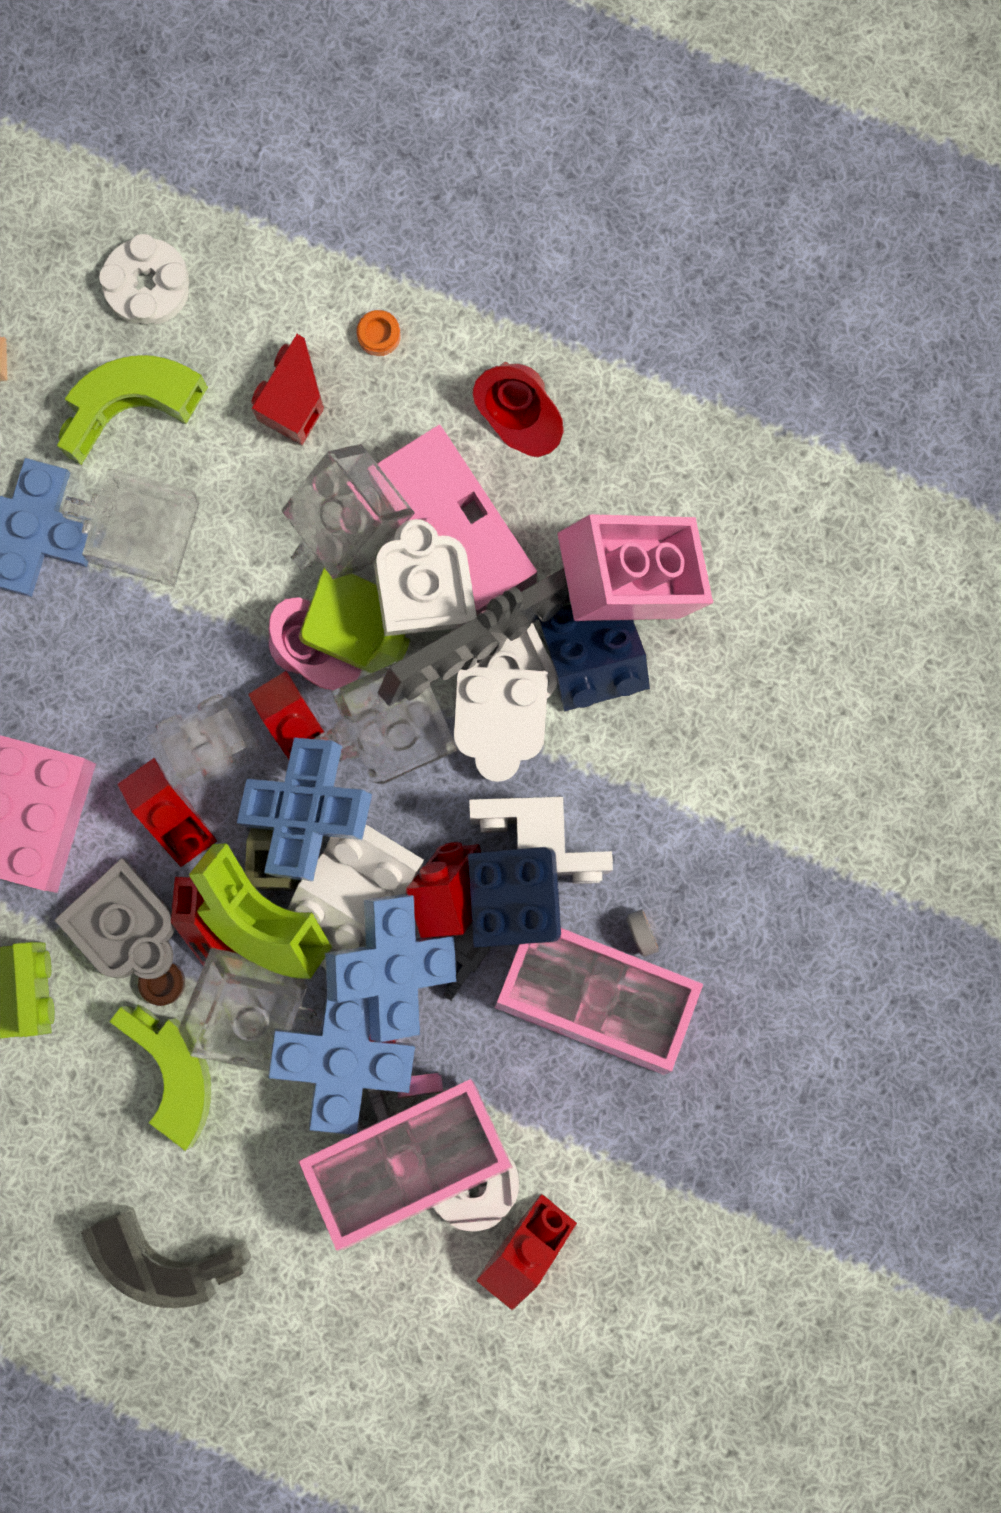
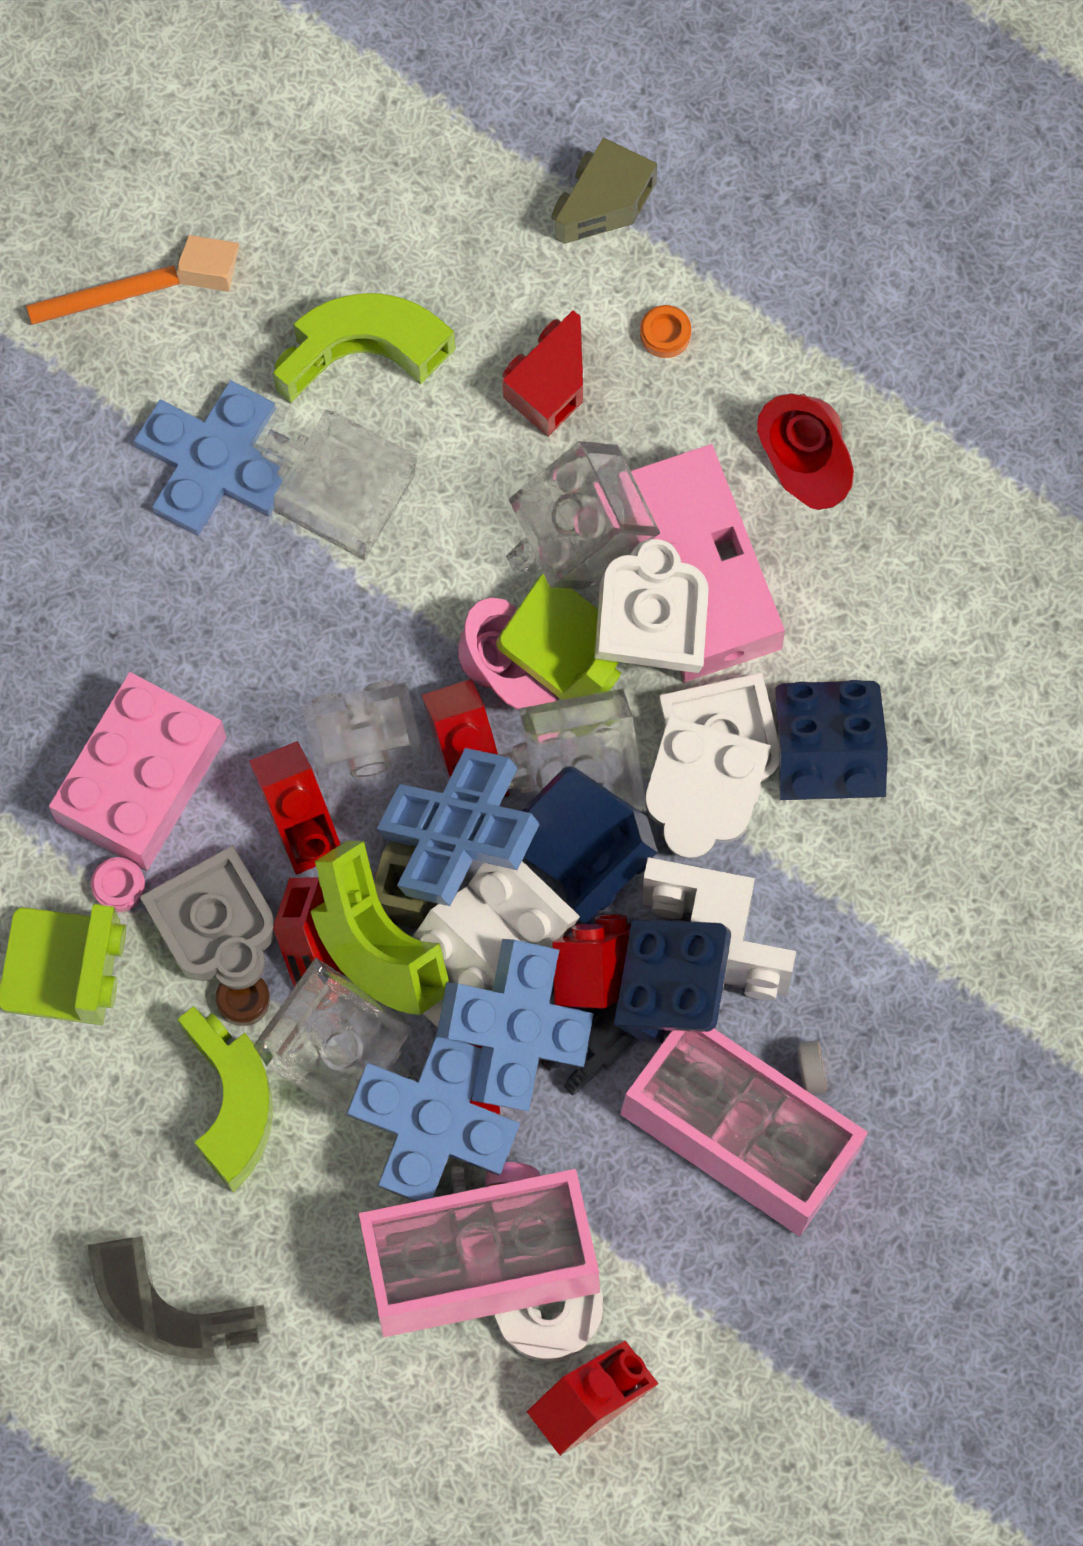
camera: 15 degrees right, 10 degrees down
(35, 911) = (118, 884): none -> bright pink tile
(138, 257) = (418, 189): white plate -> none
(302, 224) = (607, 195): none -> olive slope
(415, 789) = (588, 840): none -> dark blue bracket
(473, 642) = (709, 681): dark grey hinge -> none
(634, 567) = (897, 650): bright pink brick -> none

